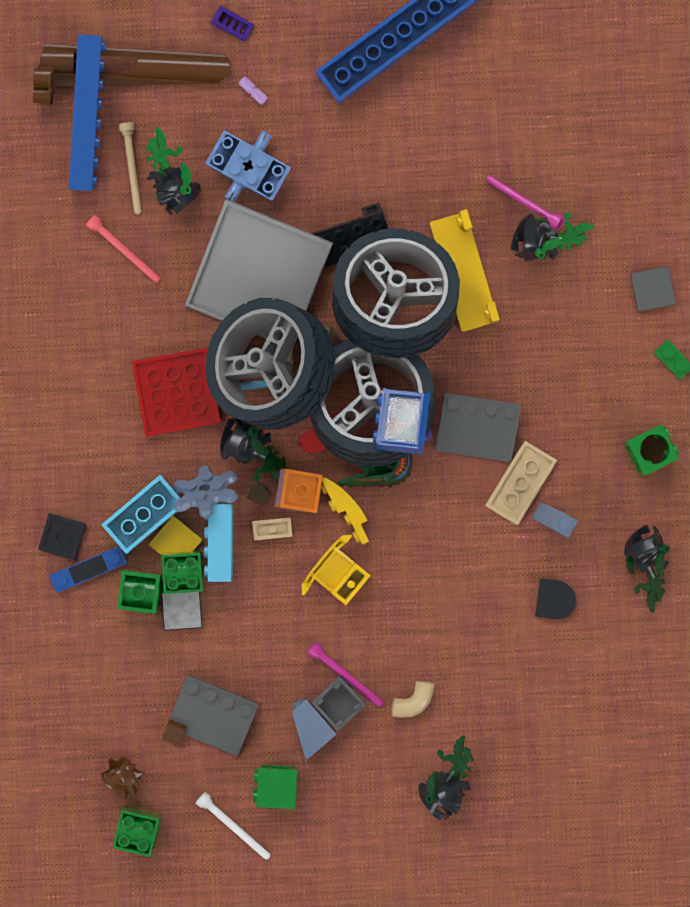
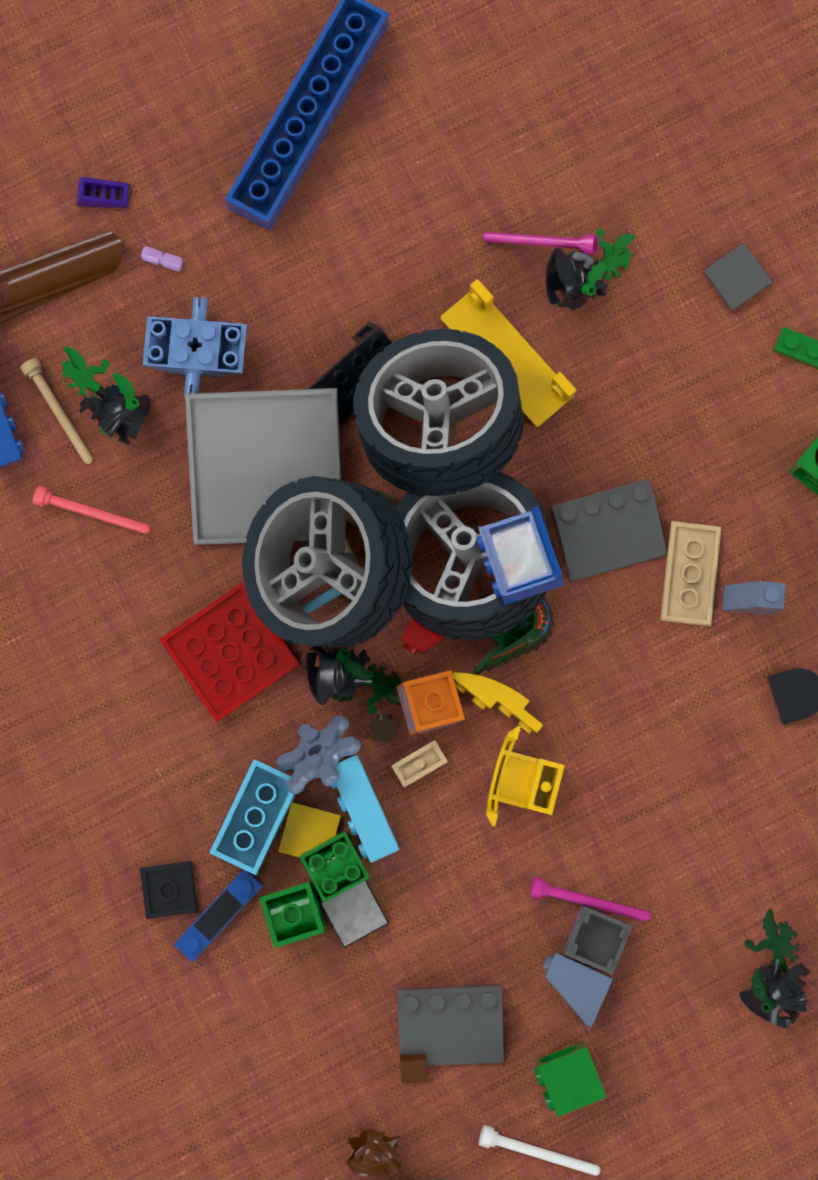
camera: 20 degrees left, 5 degrees down
(416, 703) = (690, 897): tan cylinder -> none

